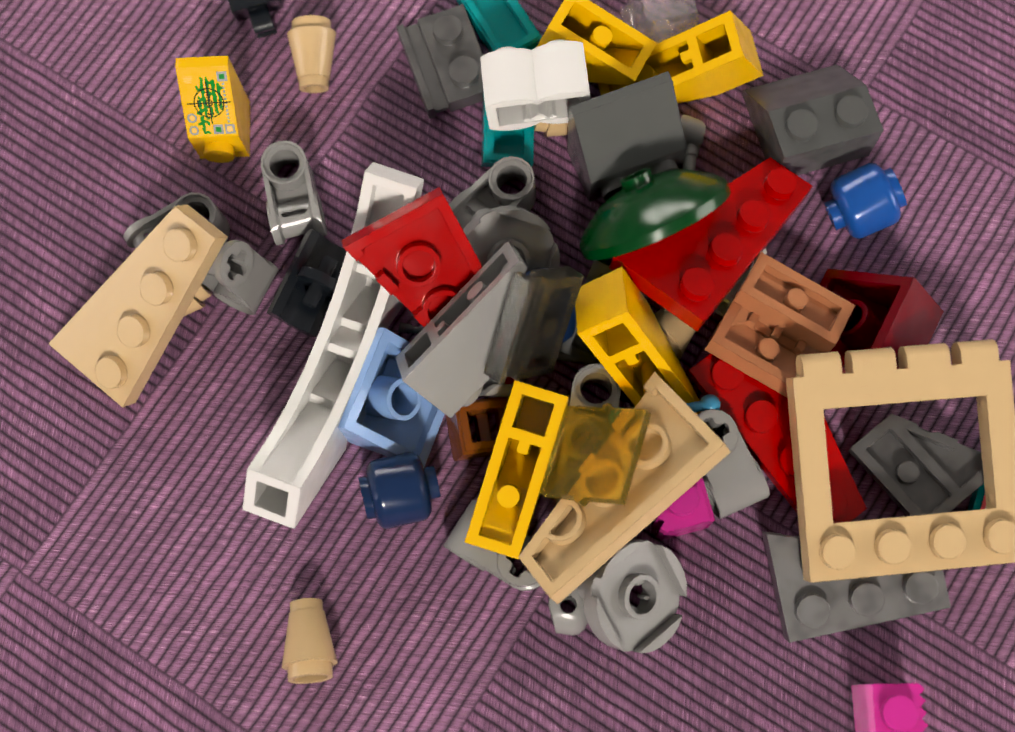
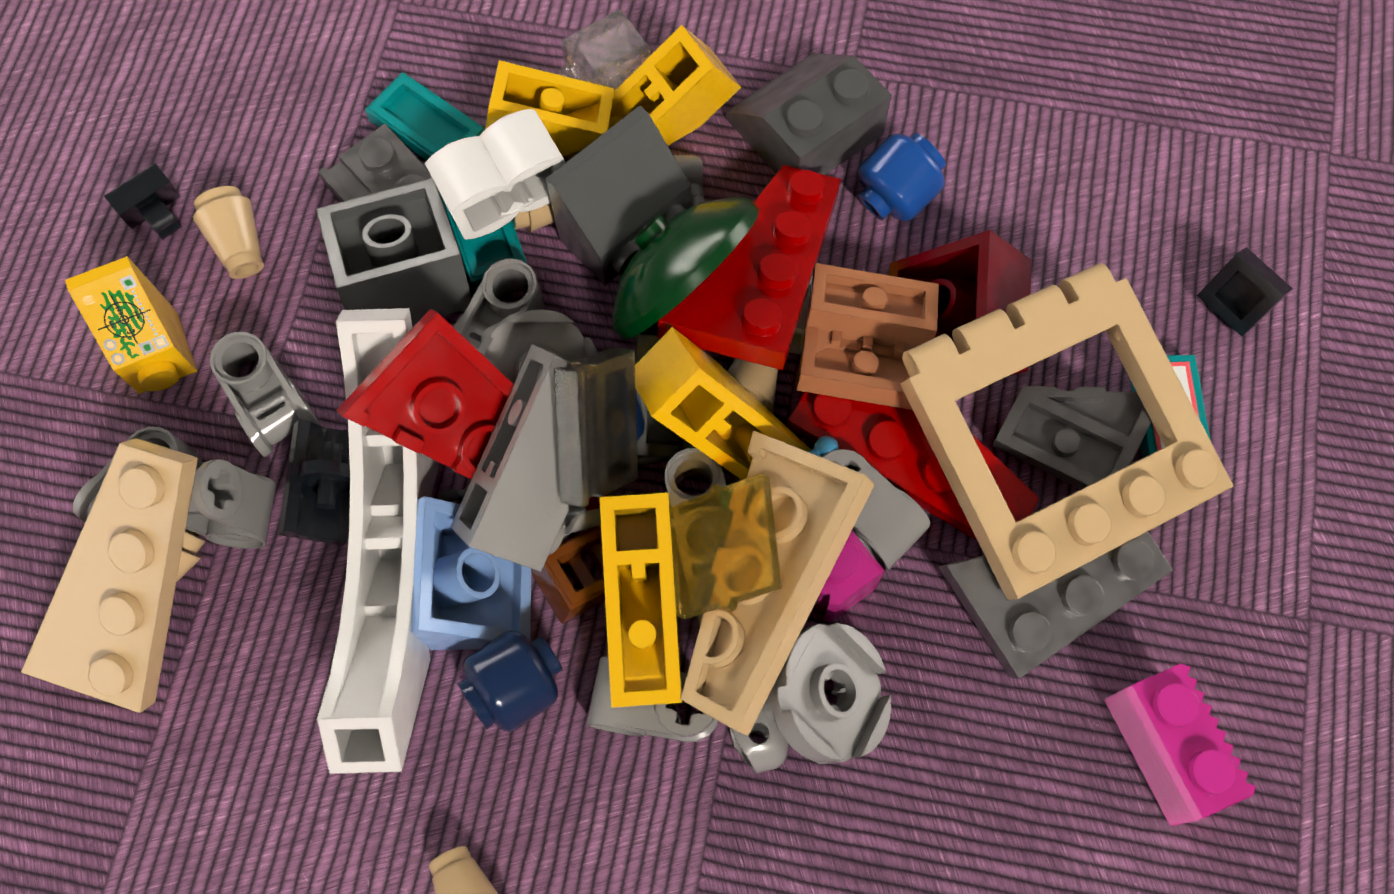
camera: 25 degrees left, 5 degrees down
(431, 121) = (395, 252): none -> dark grey slope

